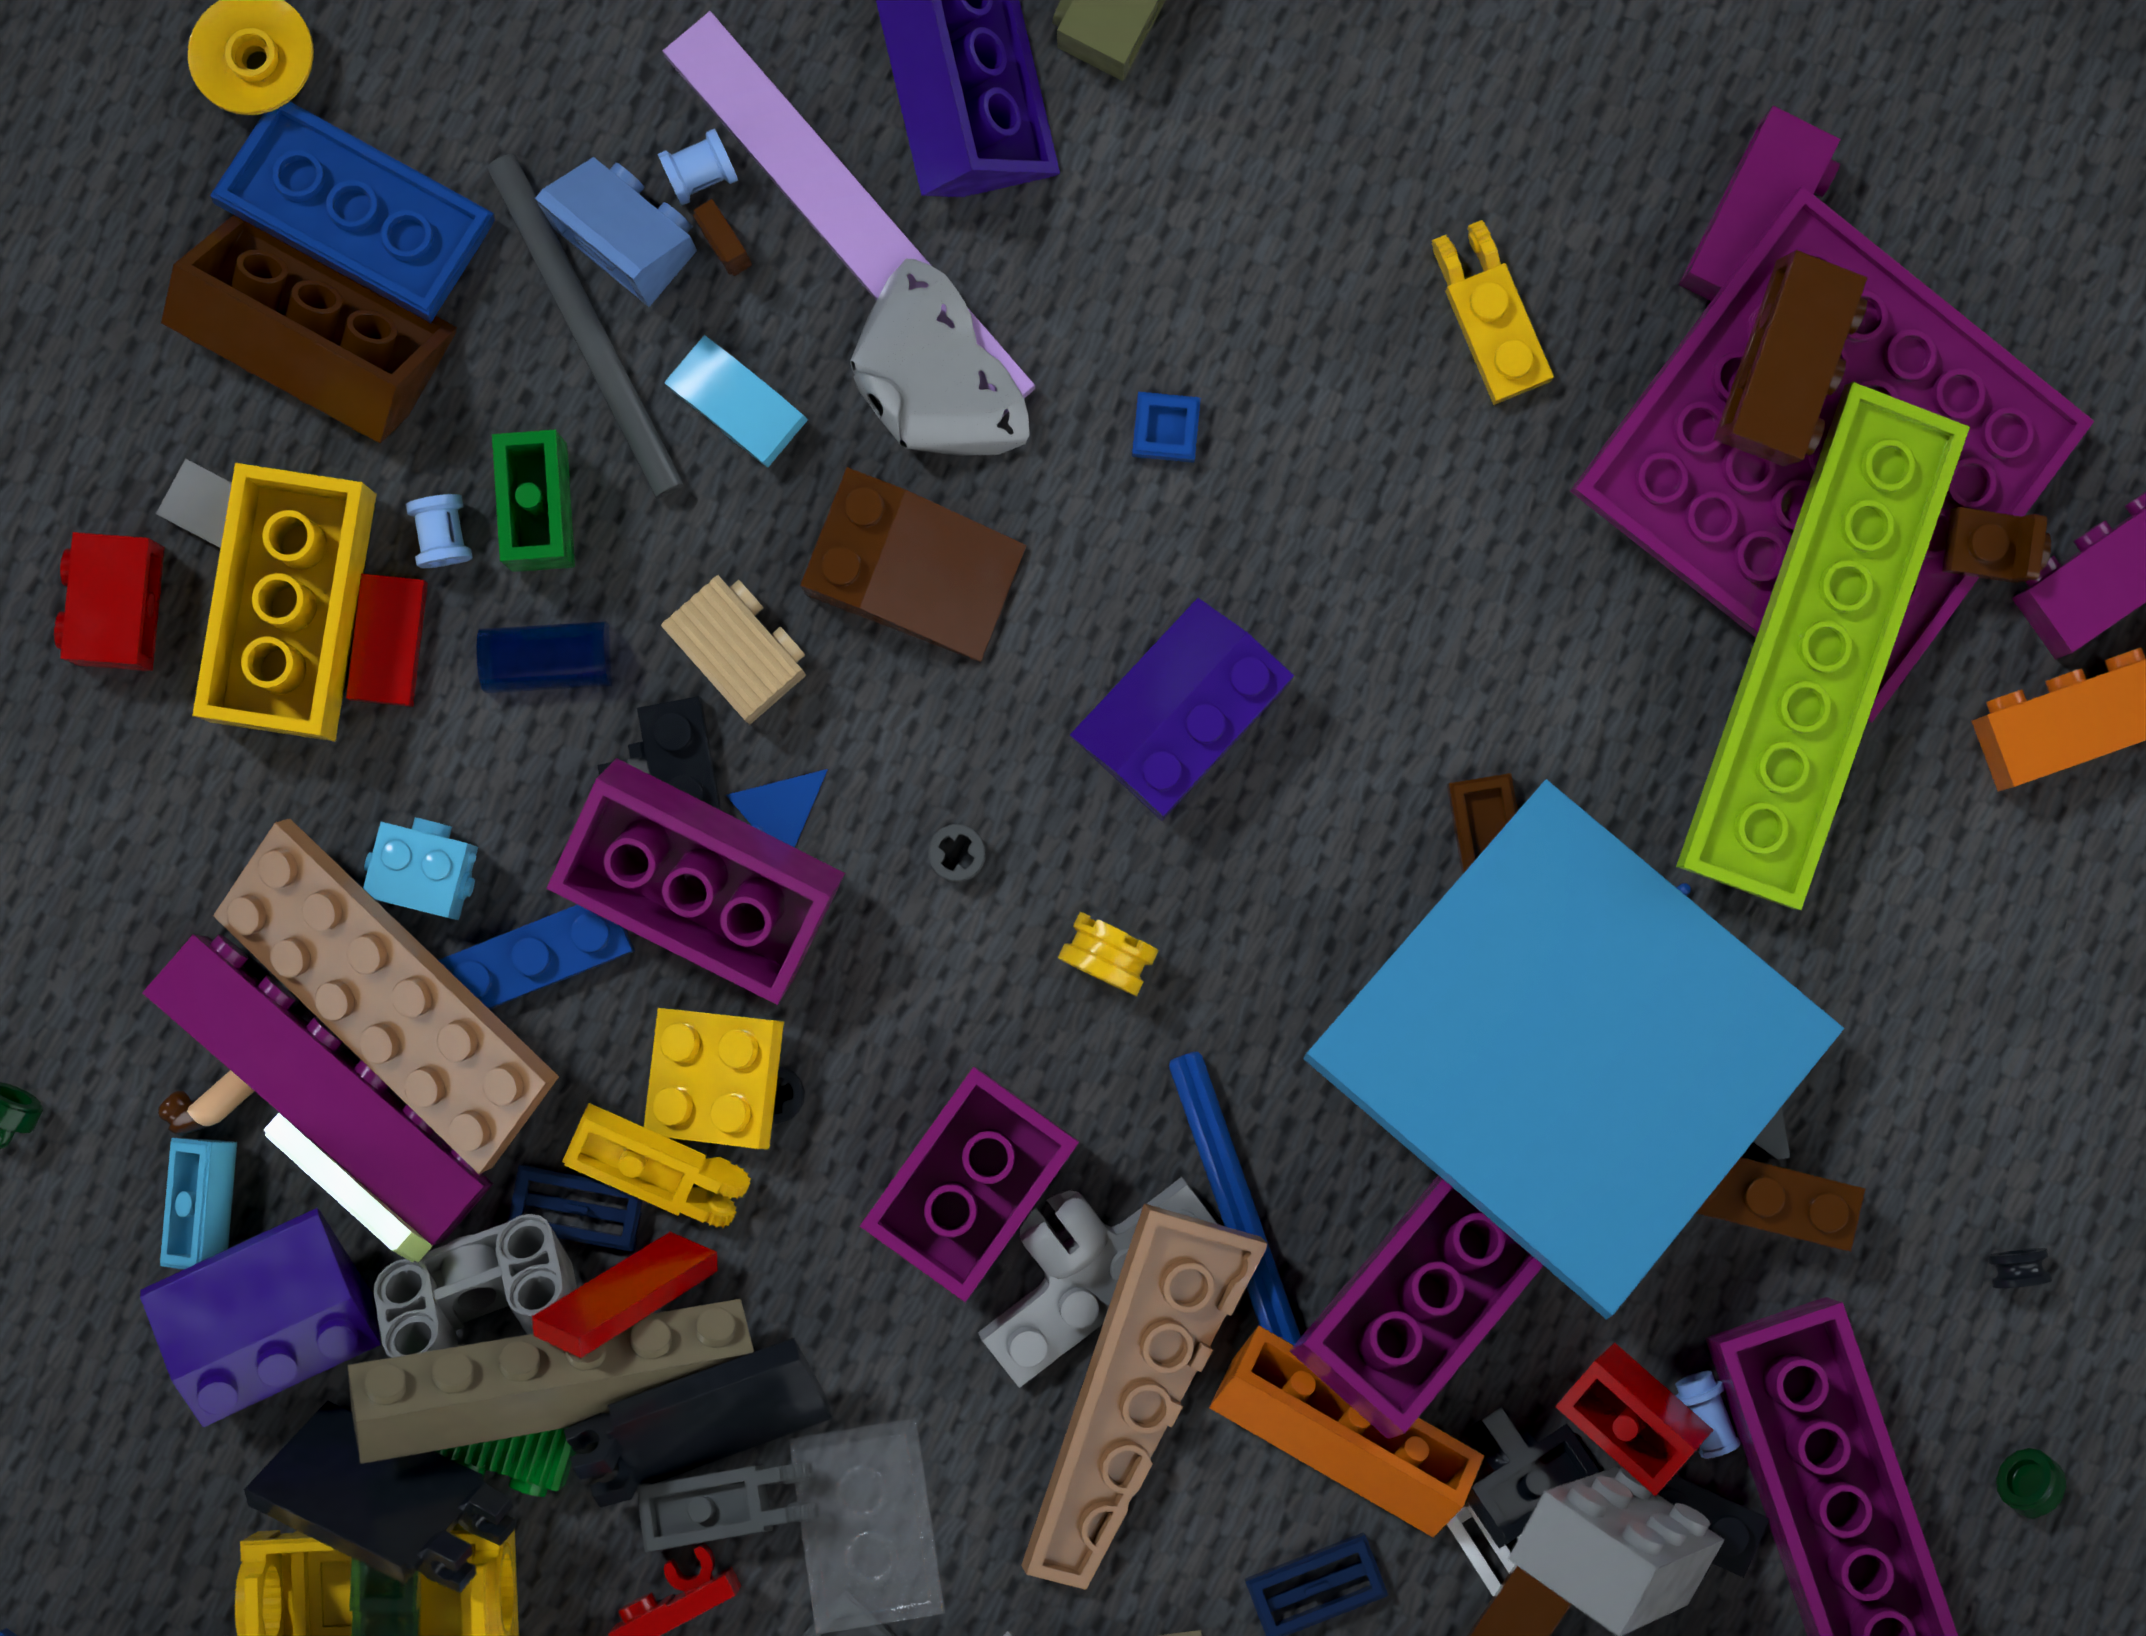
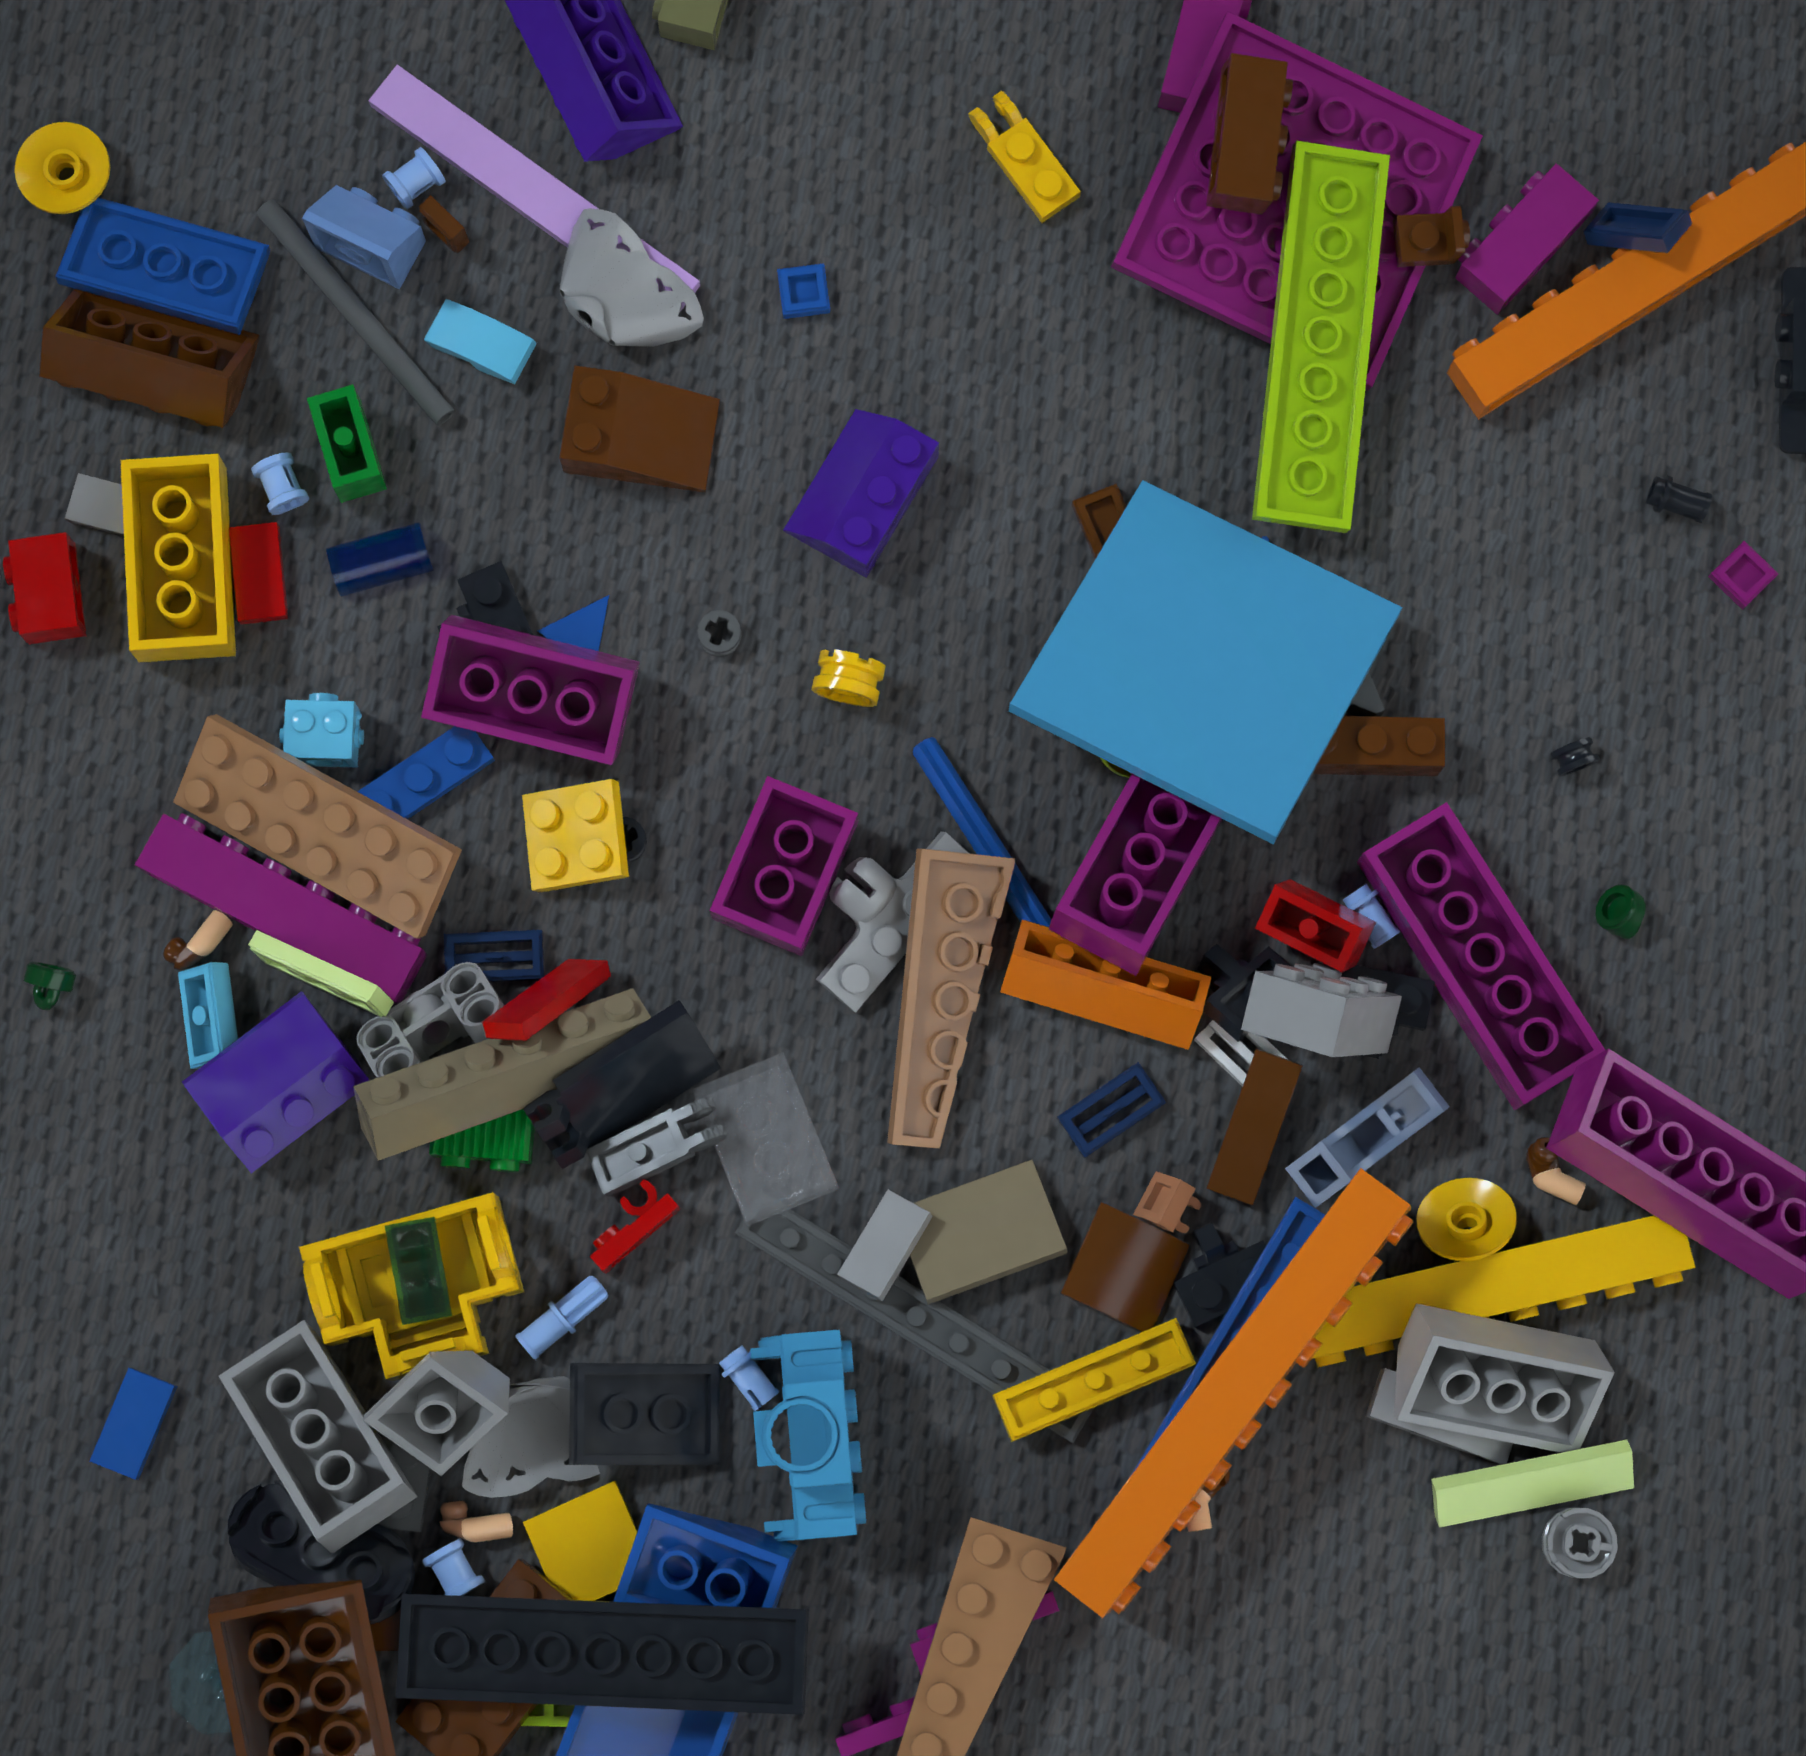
camera: 15 degrees left, 5 degrees down
(381, 1511) = (399, 1193): black tile -> none
(655, 1168) = (545, 909): yellow hinge -> none
(734, 648) = (520, 519): tan brick -> none

